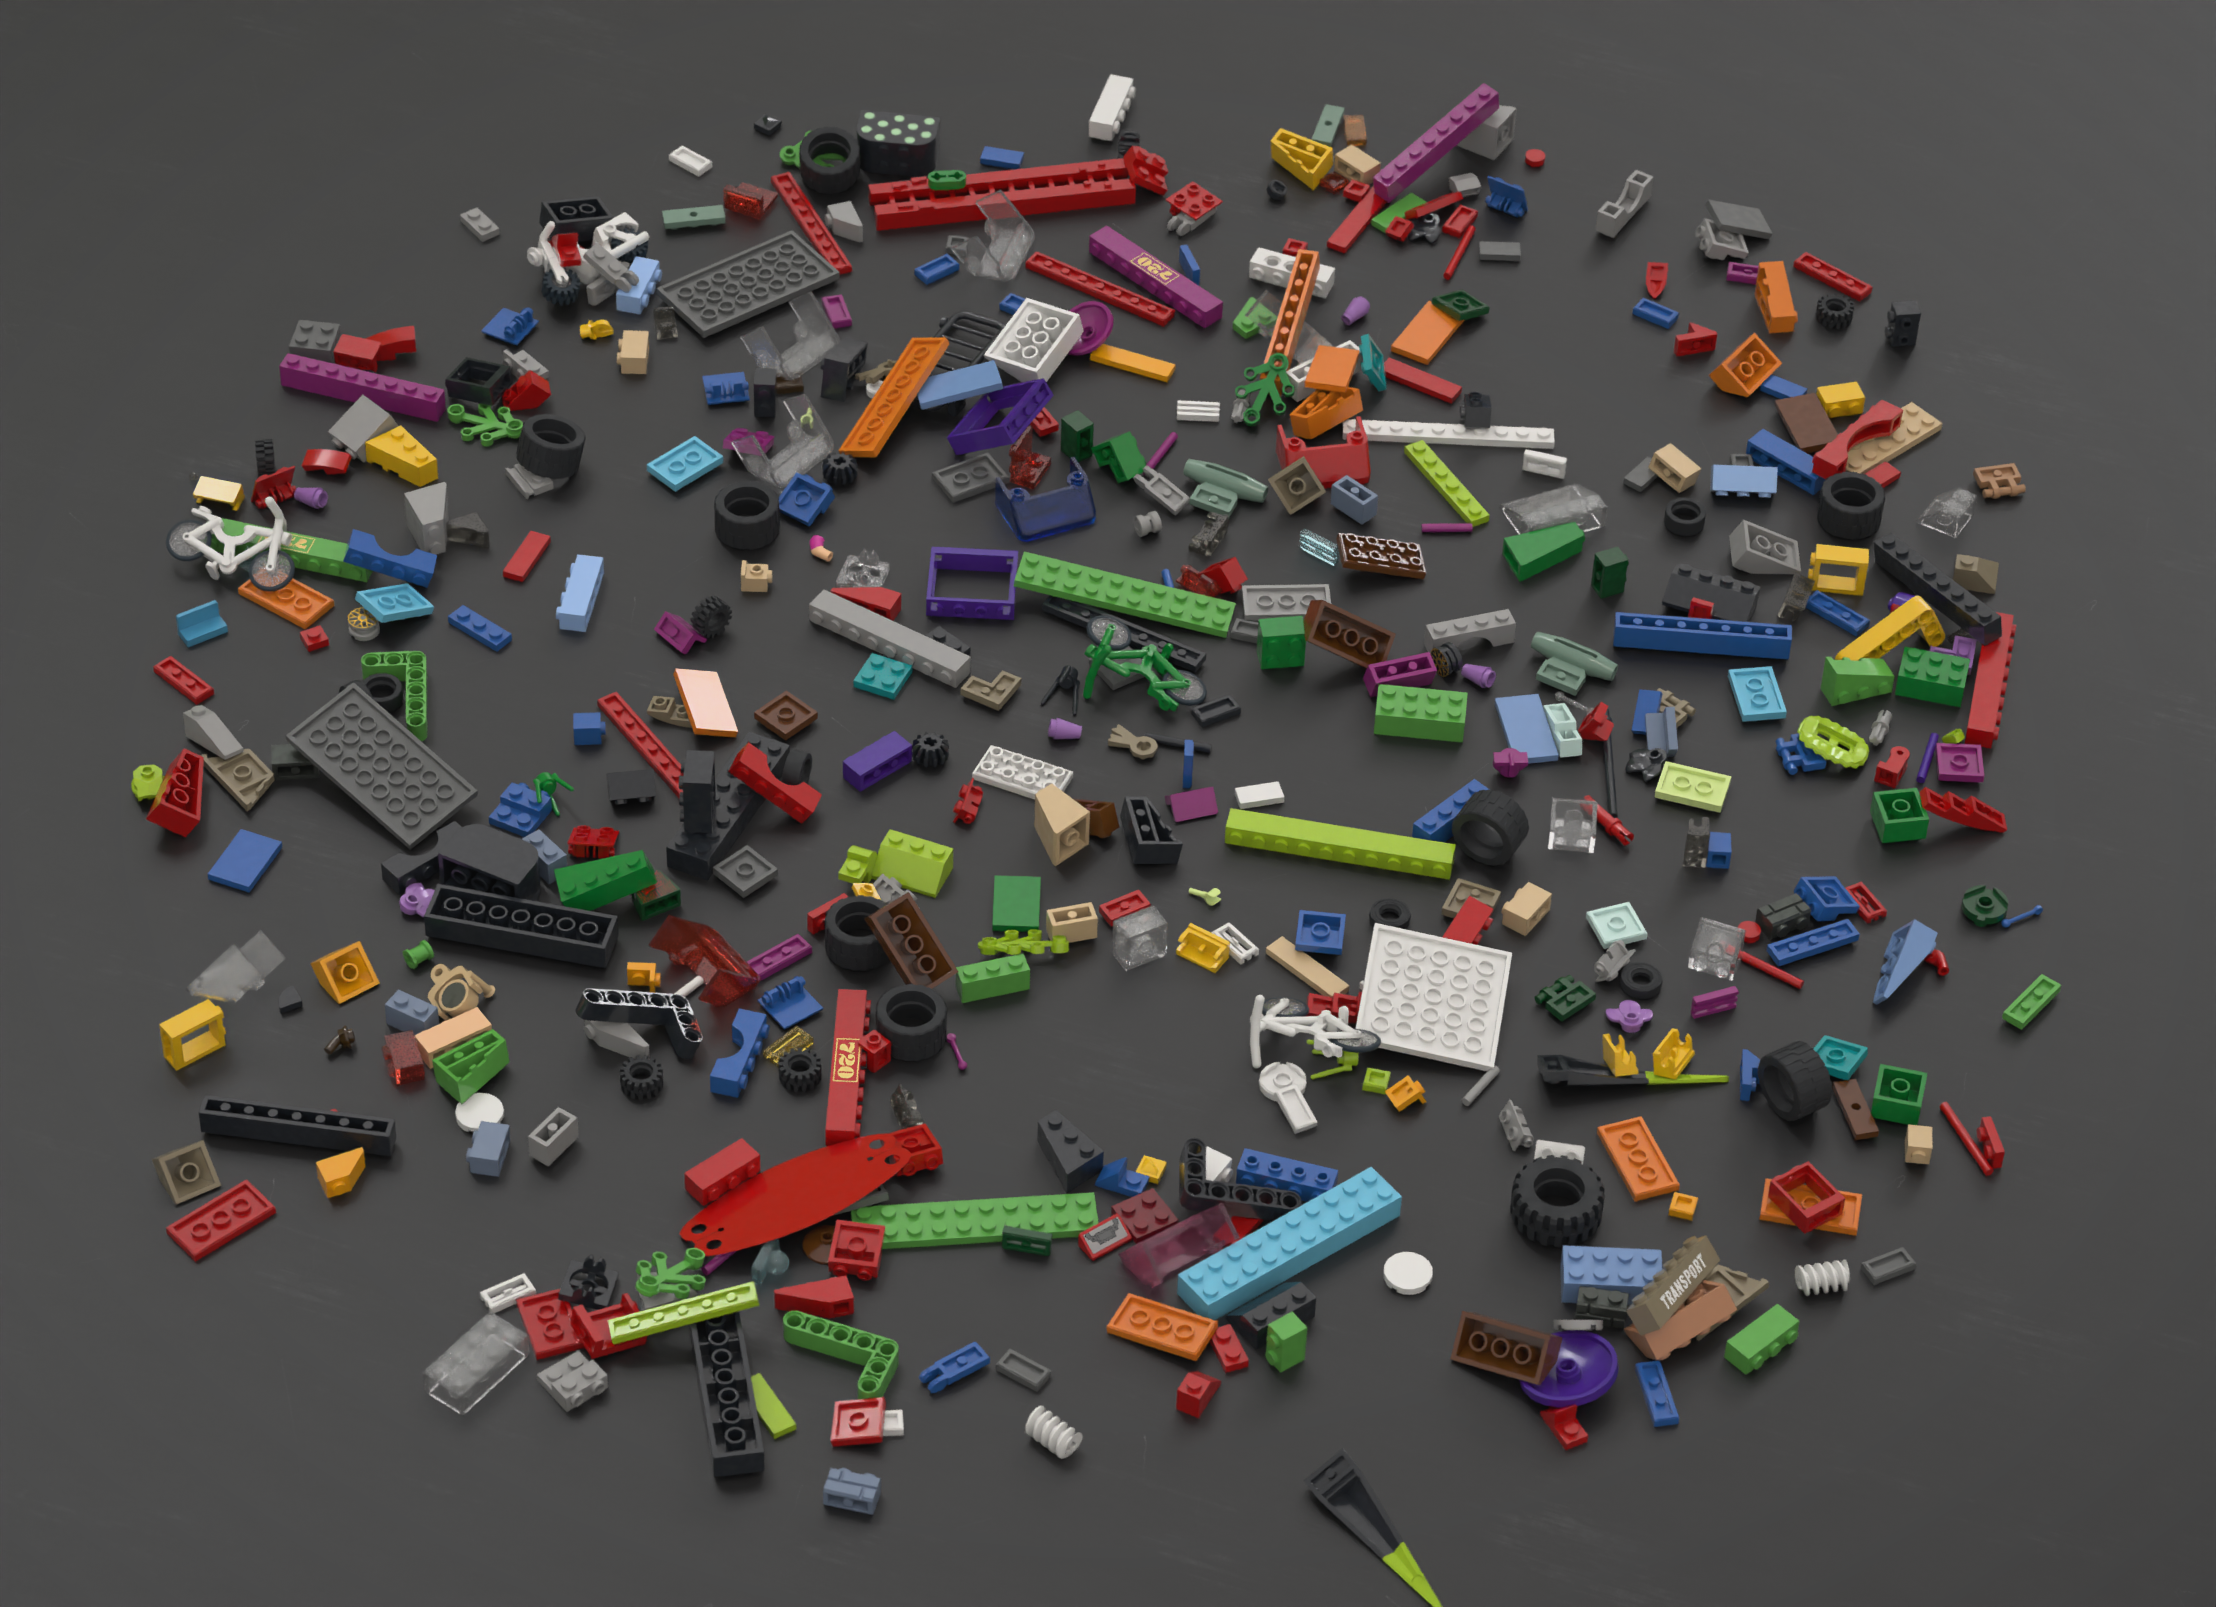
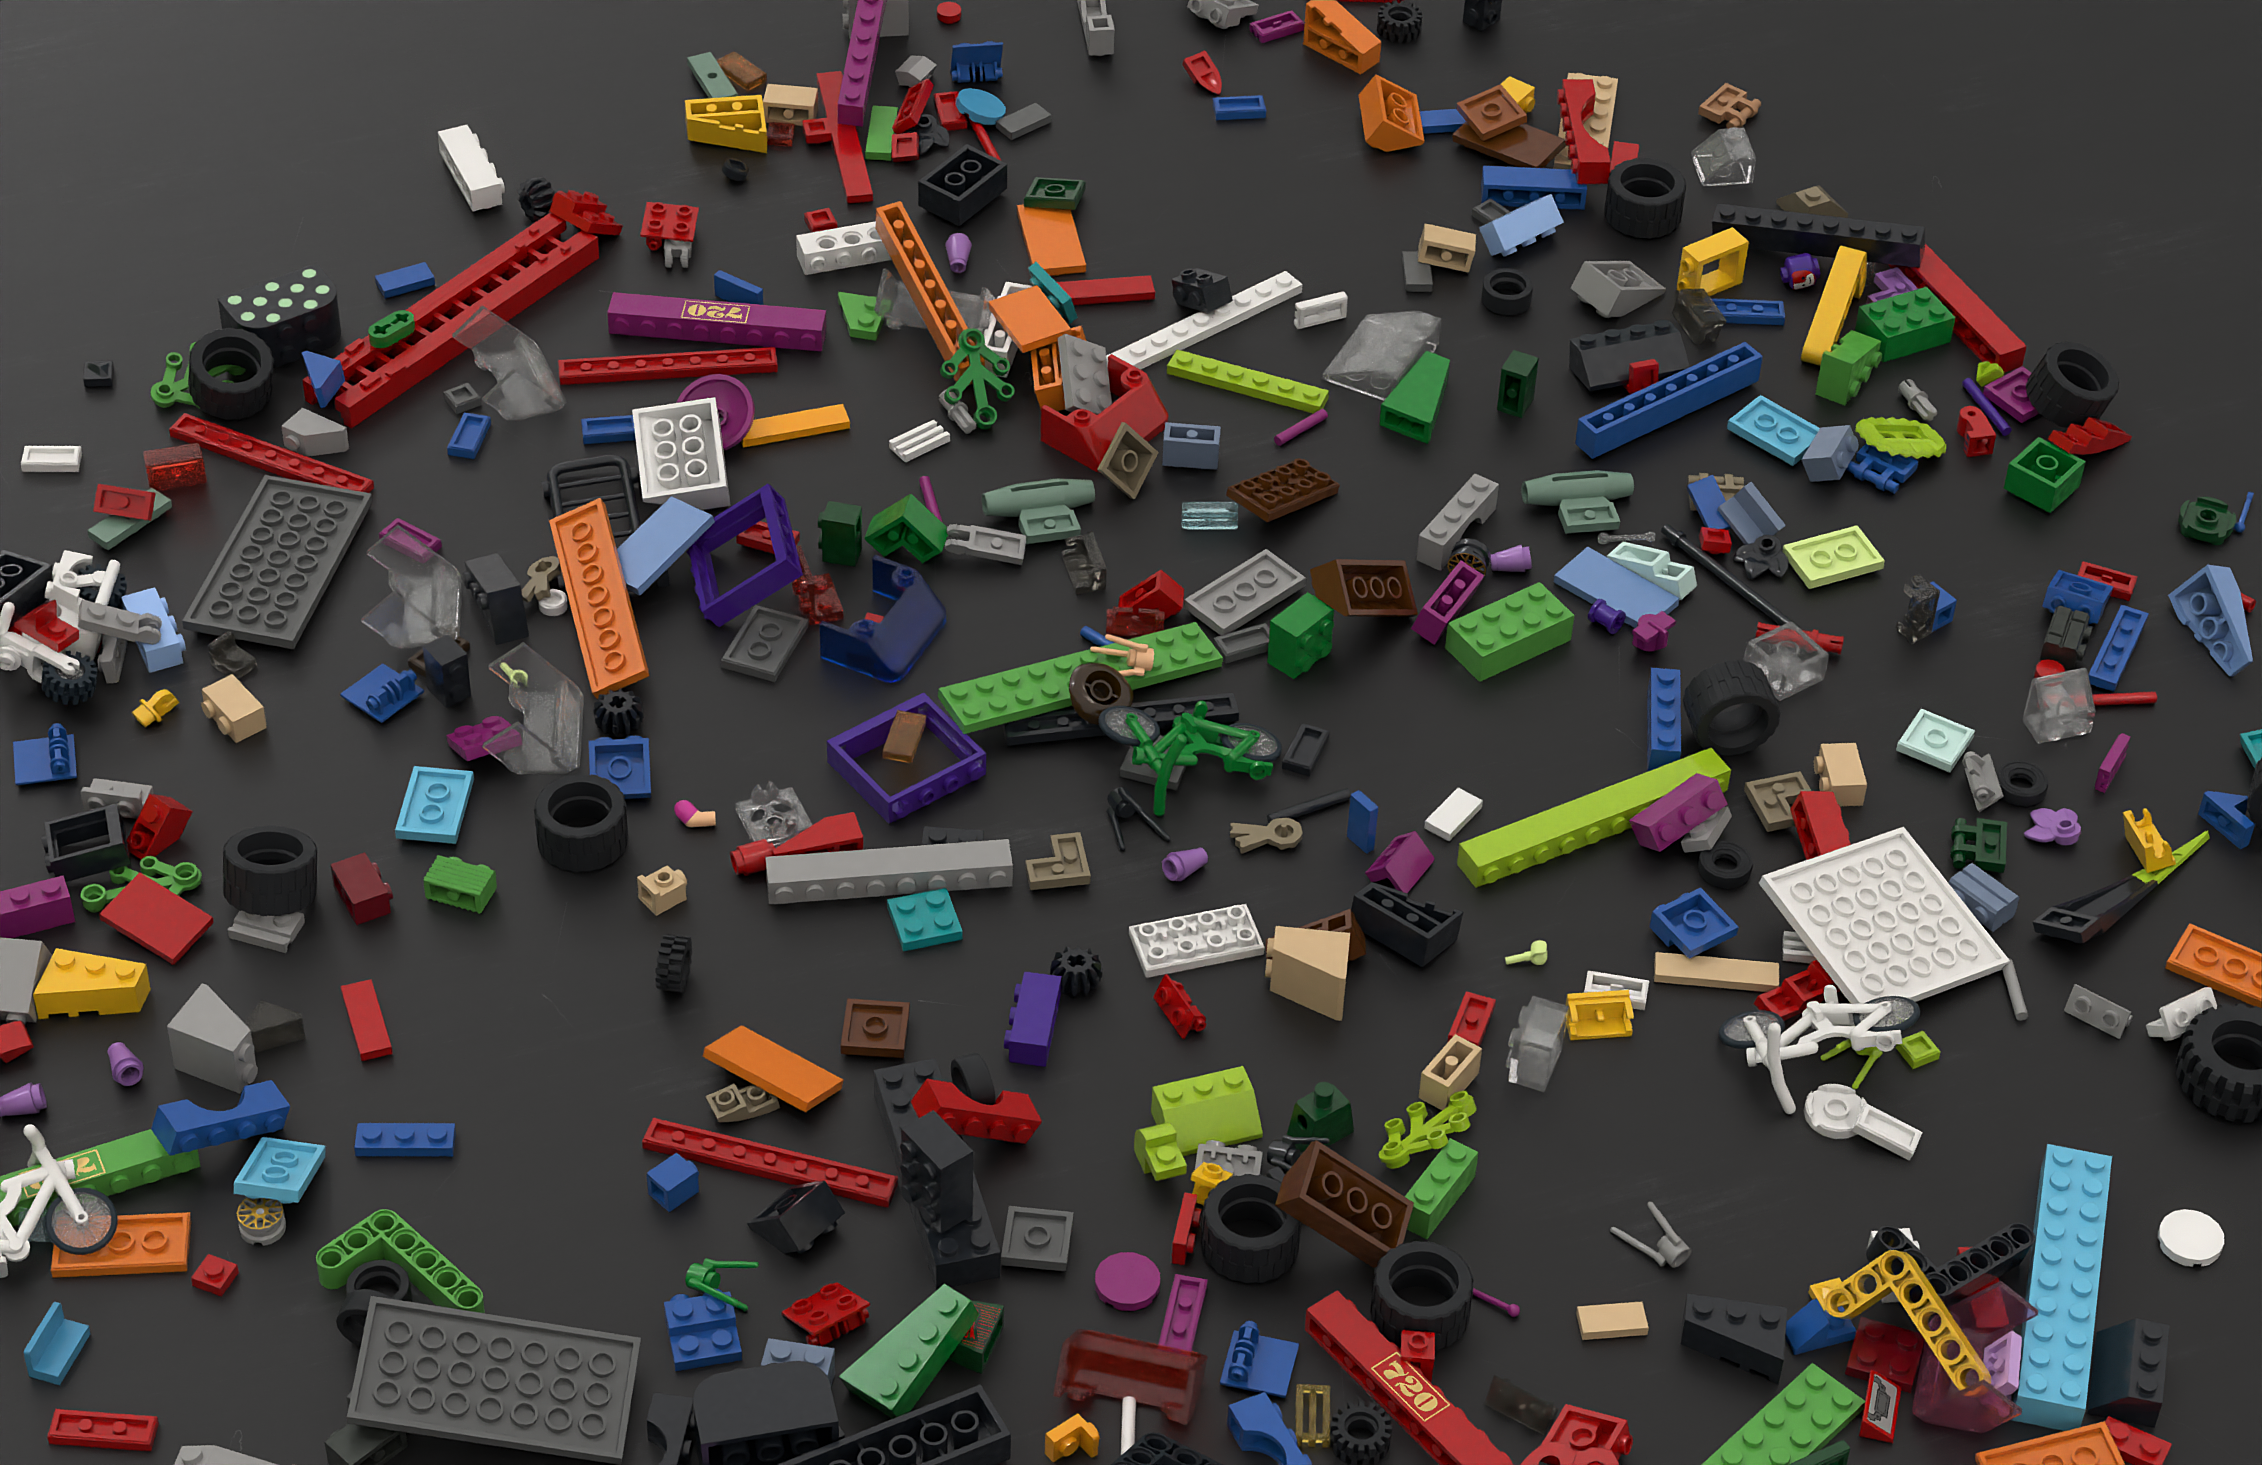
camera: 40 degrees left, 0 degrees up
(379, 508) = (124, 1065): none -> medium lavender cone
(474, 441) = (156, 918): none -> red tile
(580, 593) = (485, 1025): light blue brick -> none
(596, 485) = (361, 888): none -> dark red brick
(650, 512) = (460, 883): none -> bright green brick
(678, 632) = (647, 1005): magenta panel -> none
(693, 203) = (124, 502): none -> red plate
(769, 922) = (1127, 1281): none -> magenta tile
(818, 584) = (751, 857): none -> red brick
(874, 188) = (325, 376): none -> blue slope
(929, 910) = (1284, 1152): none -> black plant
(969, 903) = (1321, 1115): none -> dark green torso
(976, 568) = (904, 736): none -> clear orange tile
(1010, 1103) = (1612, 1320): none -> tan tile
(1016, 903) = (1369, 1090): green tile -> none
(1088, 1089) = (1671, 1246): none -> light grey plant
(1115, 601) = (1096, 688): none -> dark brown hat
(1147, 523) = (1012, 588): light grey wheel -> none
(1162, 598) = (1138, 657): none -> light nougat plant
(1170, 1173) = (1919, 1312): none -> yellow beam
(1187, 1260) = (2003, 1363): none -> lavender bracket
(1286, 1342) = (2196, 1395): bright green brick -> none
(1291, 1175) = (1971, 1212): blue brick -> none
(1330, 420) = (1084, 374): none -> light grey plate
(1387, 867) = (1678, 812): none -> magenta brick
(1393, 889) = (1706, 833): none -> light grey plate
(1403, 269) = (962, 185): none -> black brick
(1405, 1093) = (1966, 1044): light orange bracket -> none
(1478, 226) = (980, 106): none -> dark azure tile
(1495, 735) = (1606, 616): none -> dark purple bush
(1523, 1024) = (1984, 896): none -> sand blue brick
(1595, 724) = (1685, 542): red slope -> none
(1617, 1058) = (2108, 876): yellow hinge -> none
(1626, 734) = (1715, 540): none -> red plate
(1696, 341) = (1311, 113): red slope -> none
(1769, 724) = (1830, 453): none -> sand blue brick
(1808, 397) = (1491, 112): none -> dark orange plate
(1998, 753) = (2072, 384): none -> black tyre

